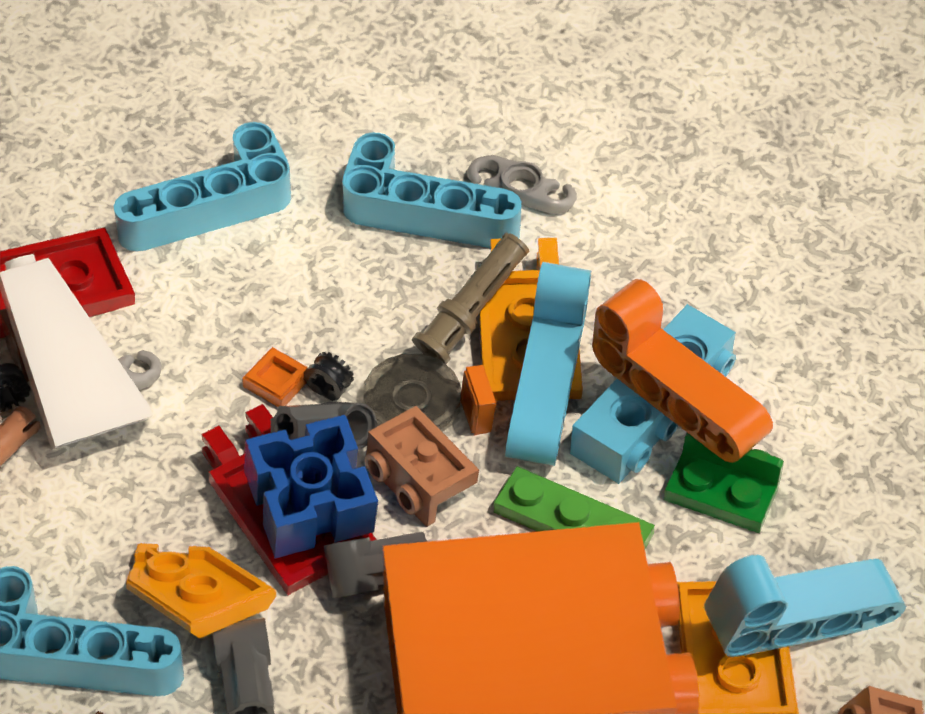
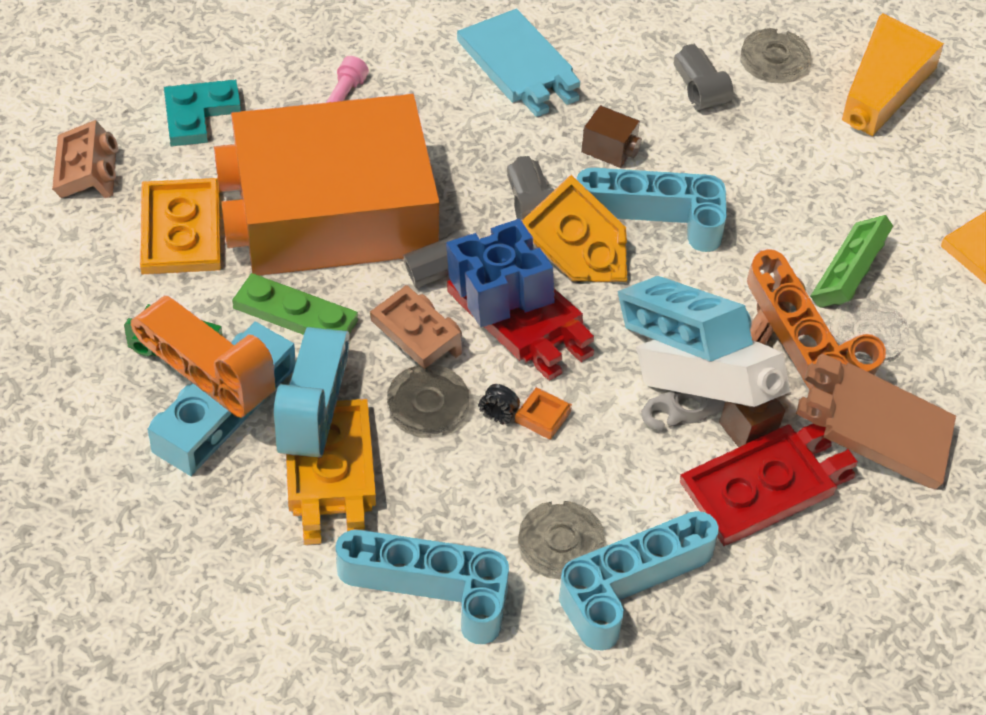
camera: 175 degrees right, 0 degrees up
(76, 325) = (686, 318): none -> medium azure brick
(279, 257) = (550, 552): none -> clear smoke tile
(295, 417) = (488, 347): dark grey piece -> none
(459, 314) = (391, 449): dark tan pin -> none
(477, 400) = (372, 384): orange tile -> none
(534, 197) = (324, 599): light grey piece -> none
(766, 612) = (131, 224): medium azure beam -> none

